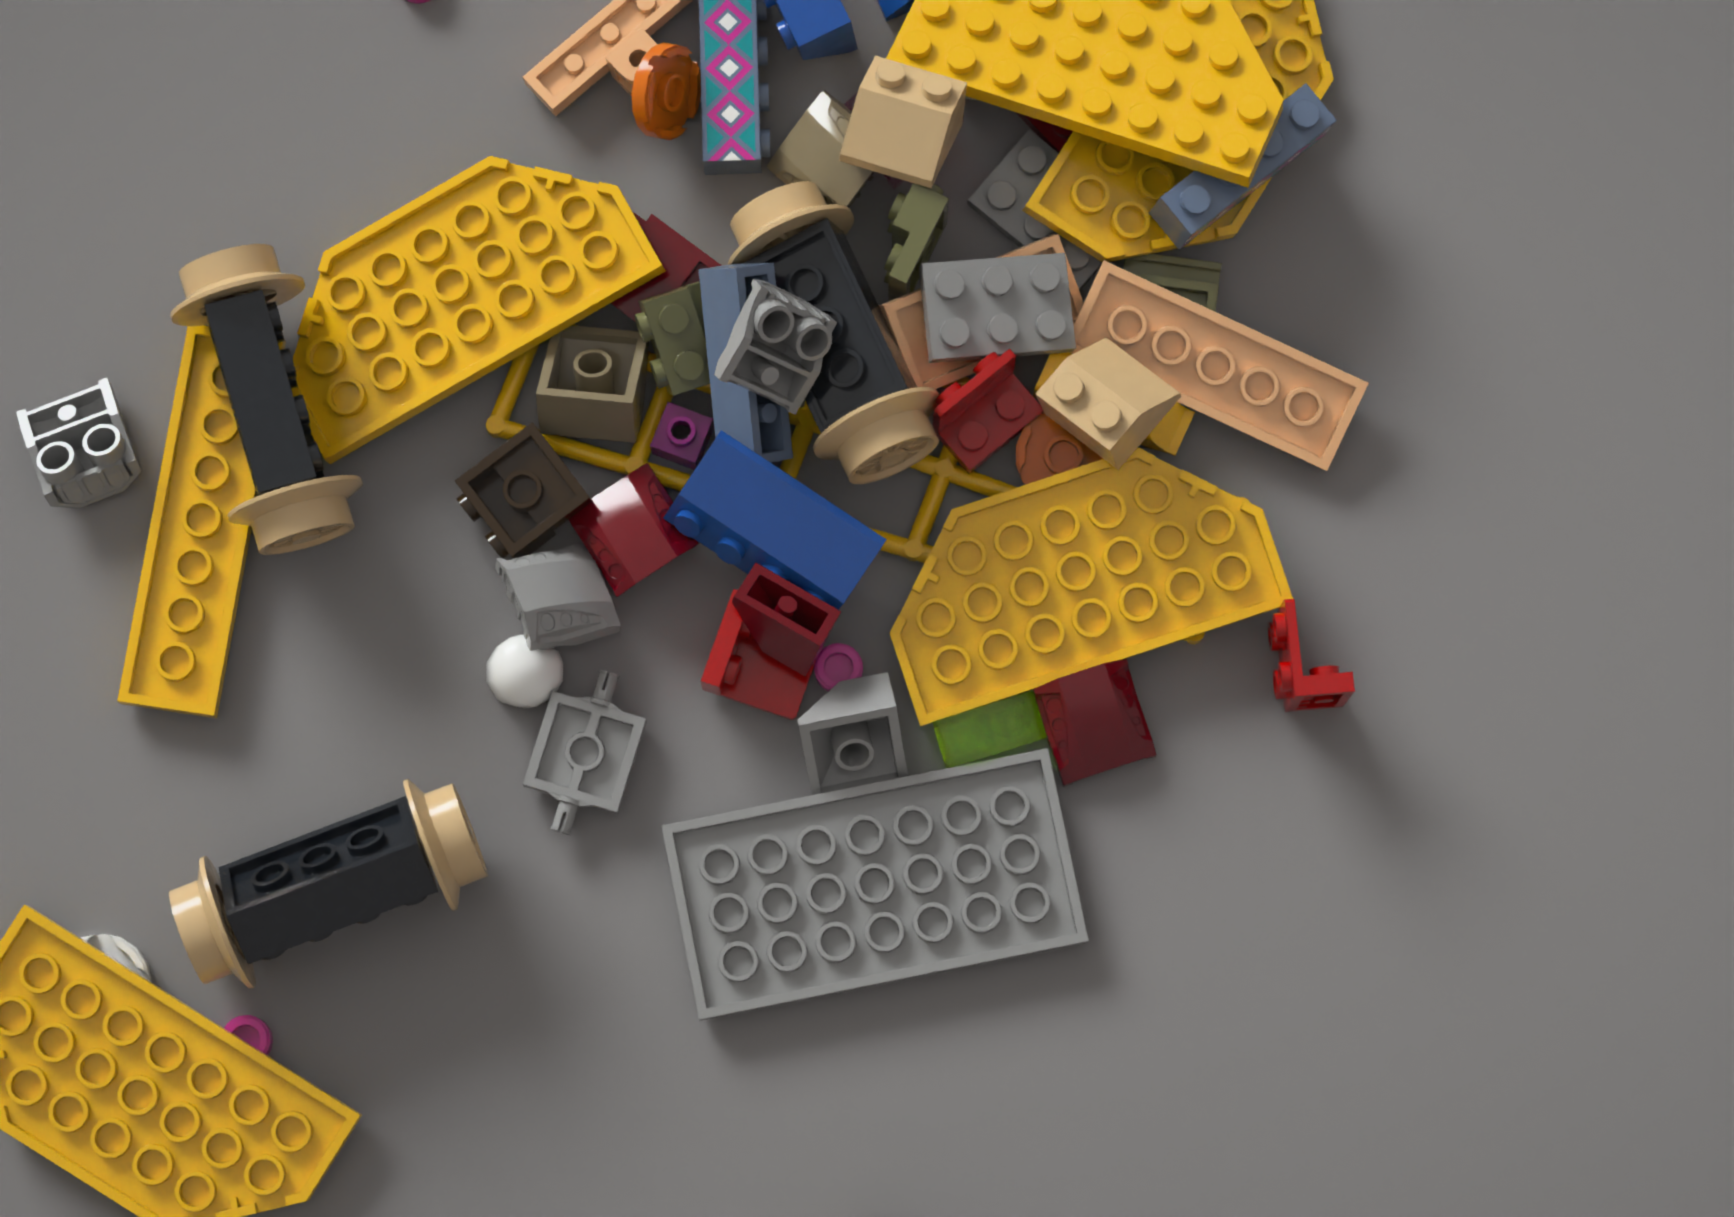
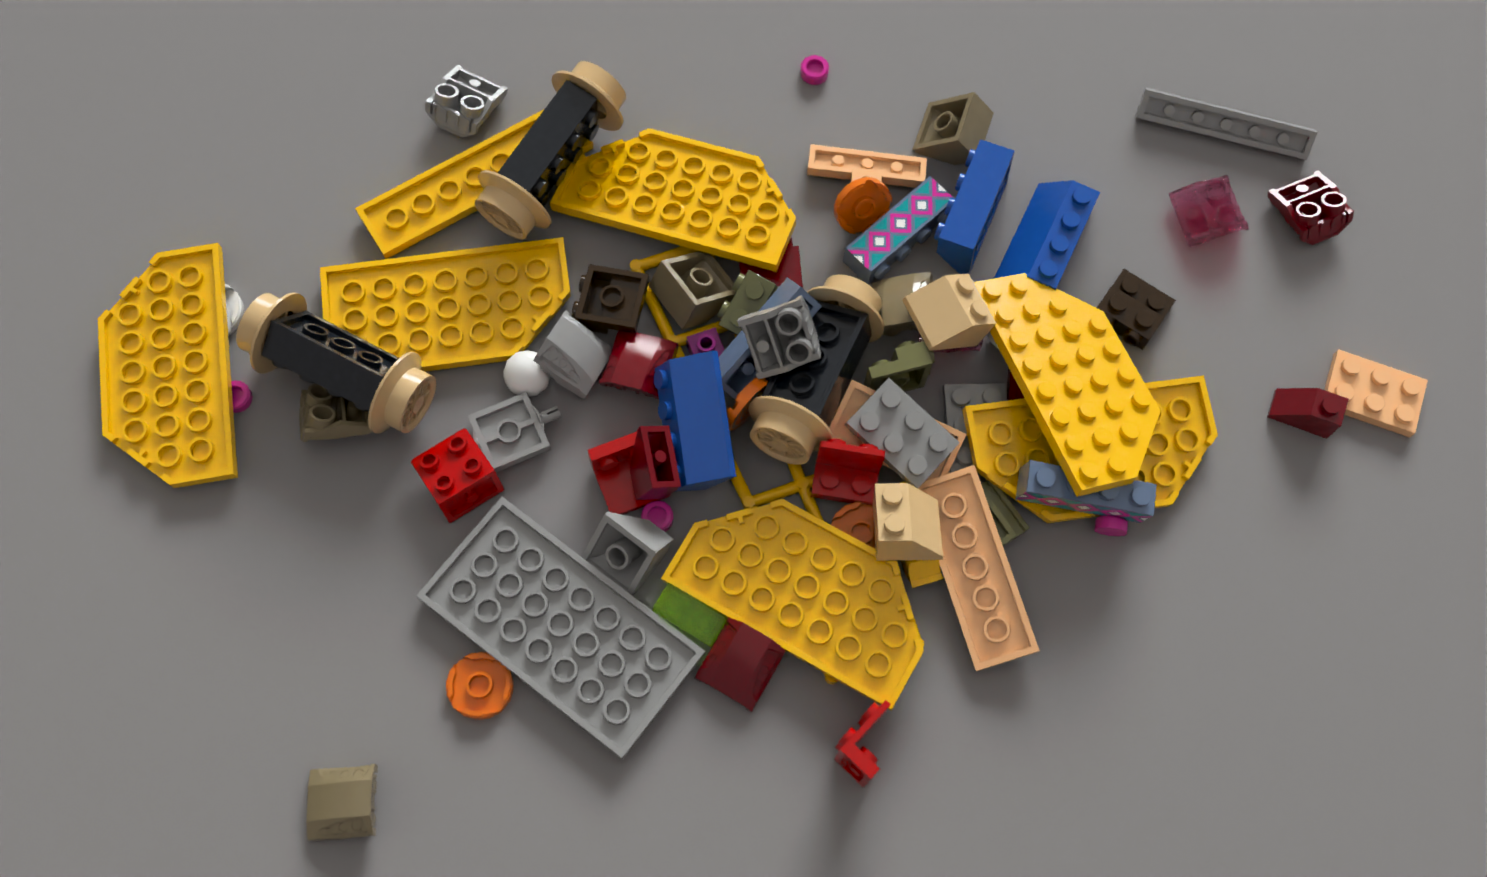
camera: 45 degrees right, 10 degrees down
(351, 687) = (451, 304): none -> yellow plate
(385, 952) = (329, 416): none -> dark tan slope
(587, 854) = (457, 475): none -> red bracket
(803, 448) = (741, 413): none -> orange tile
(865, 1033) = (479, 686): none -> orange tile
(1298, 170) = (1111, 526): none -> dark pink tile

